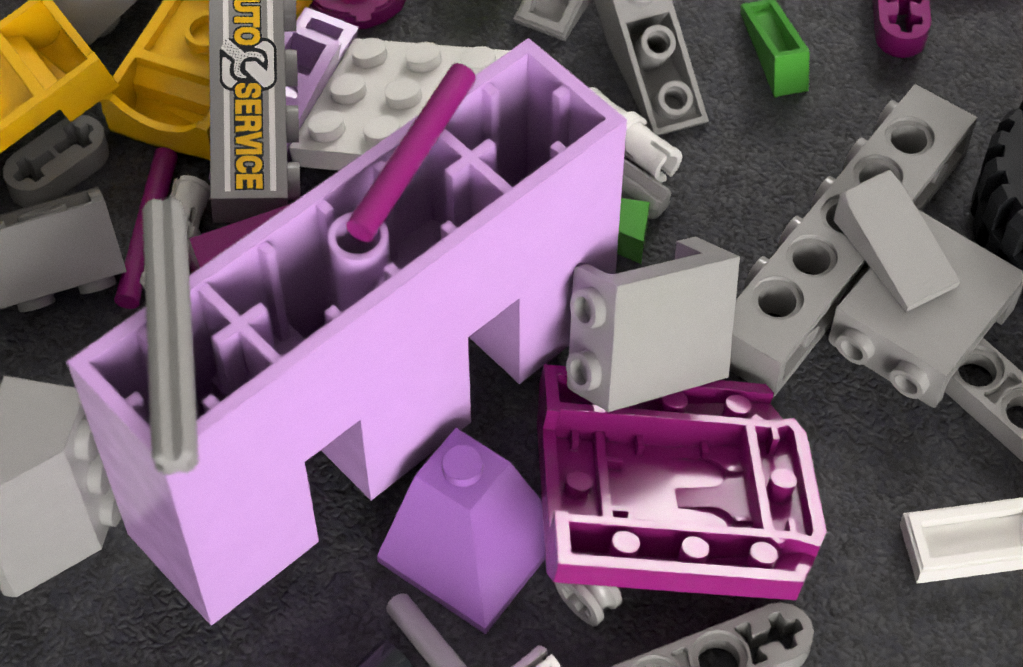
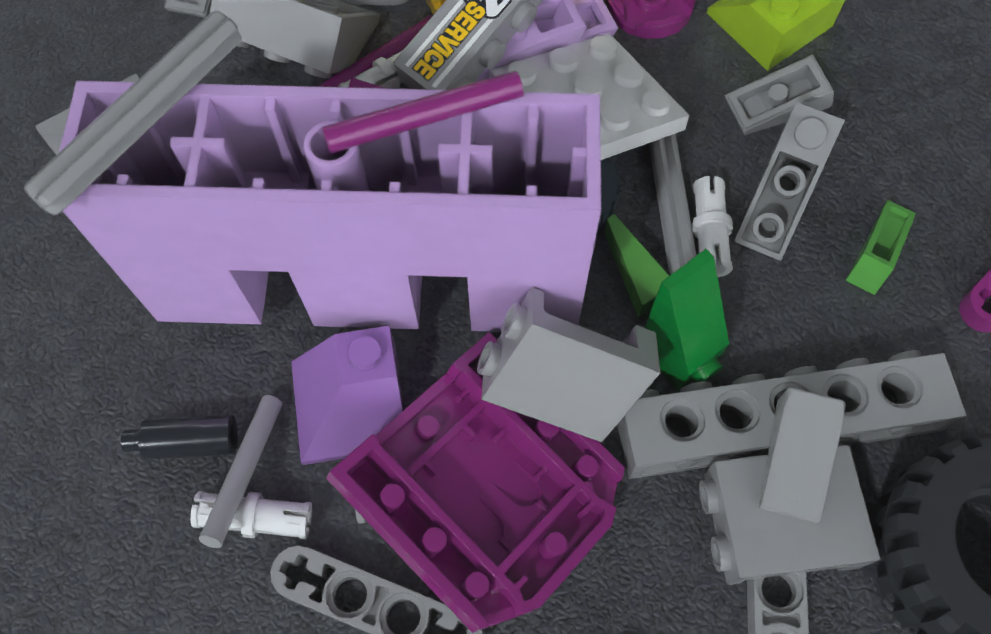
camera: 45 degrees right, 10 degrees up
(710, 203) = (690, 323): none -> green slope

